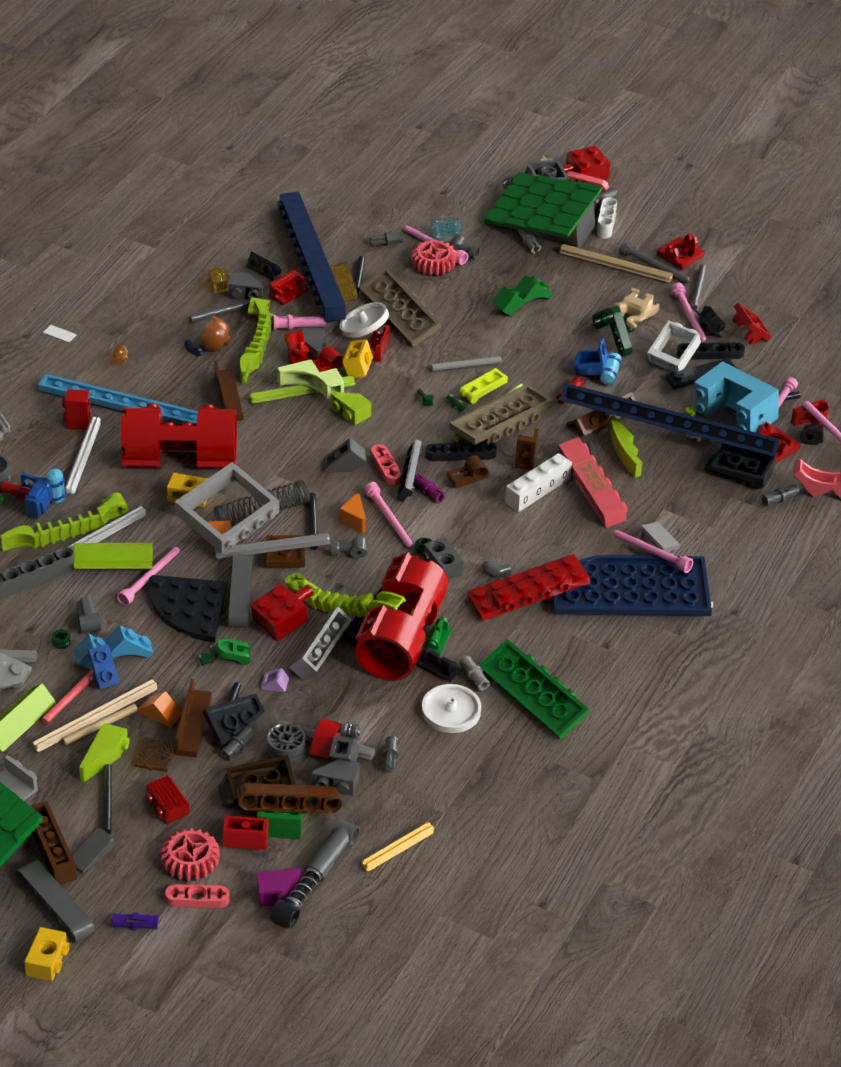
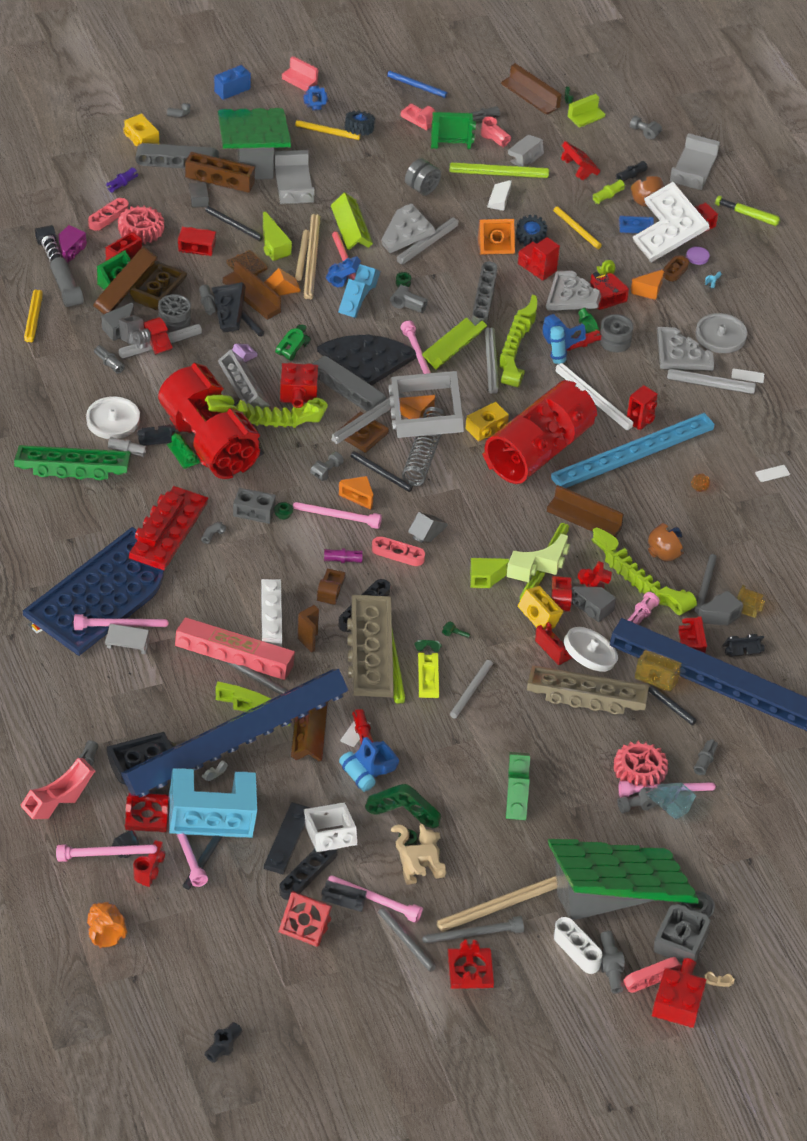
camera: 130 degrees right, 5 degrees up
(406, 485) = (389, 569): black plate -> none

